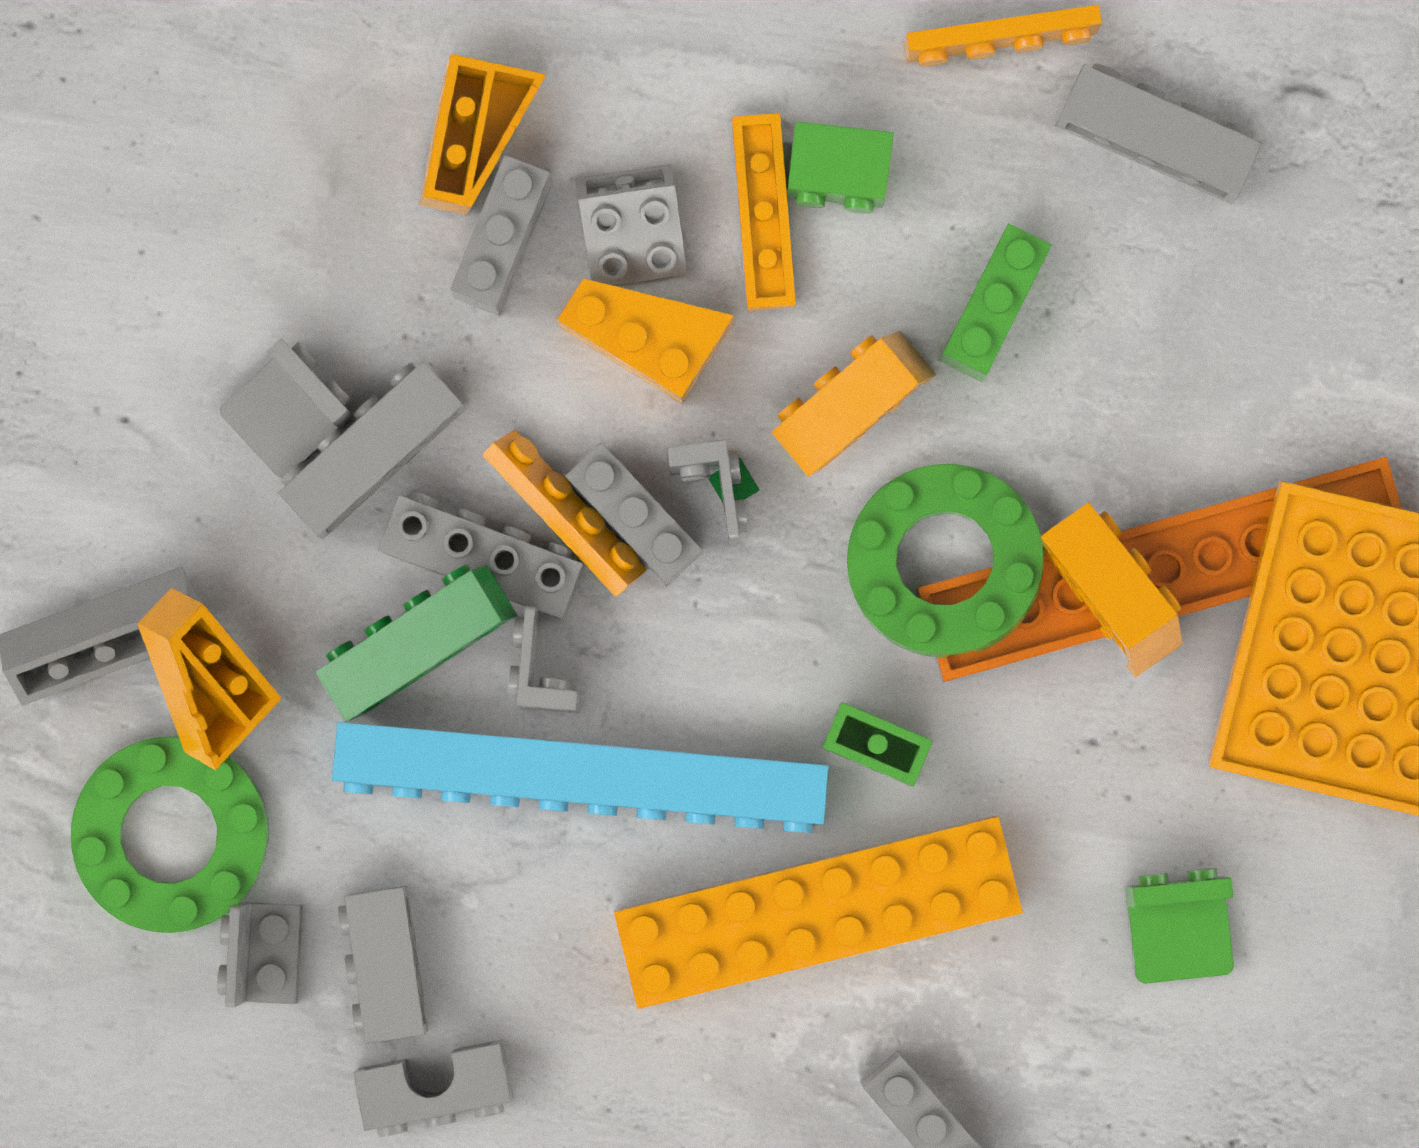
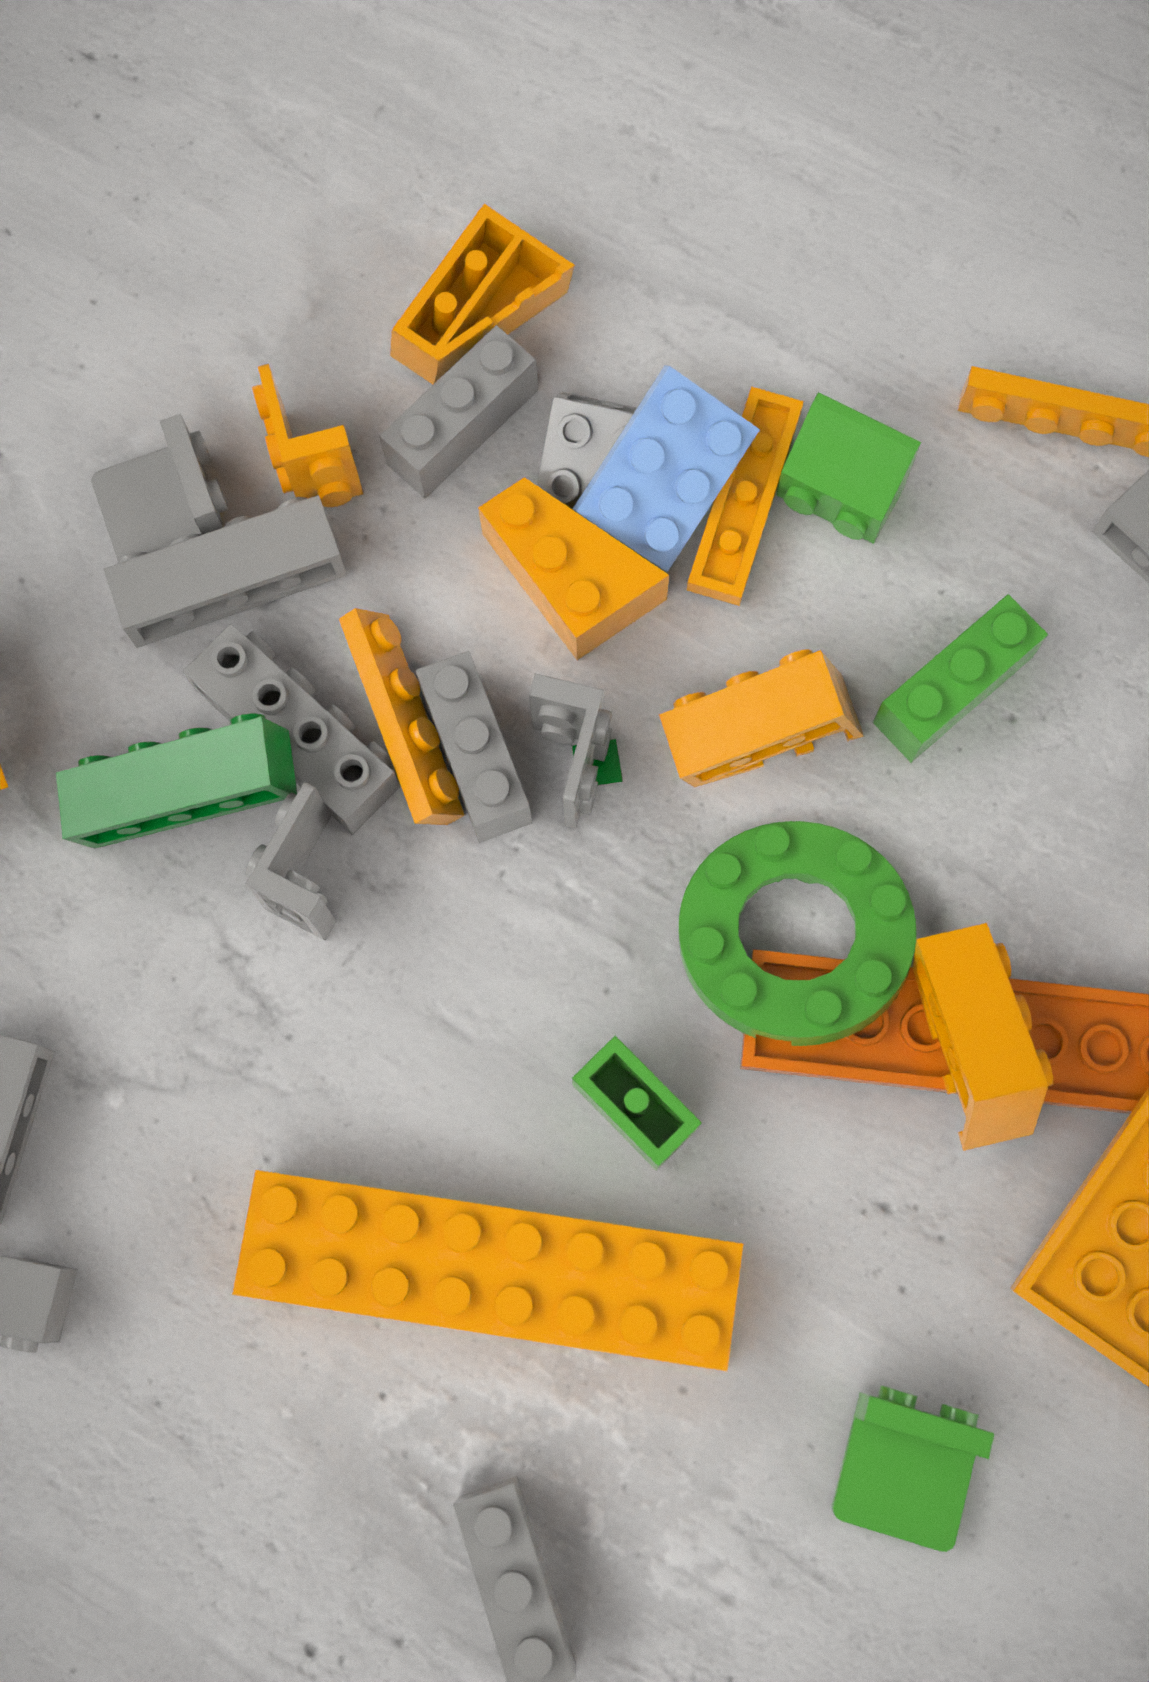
camera: 25 degrees right, 10 degrees down
(411, 337) = (308, 463): none -> light orange bracket
(580, 774) = (297, 1004): medium azure brick -> none
(694, 224) = (666, 468): none -> light blue plate

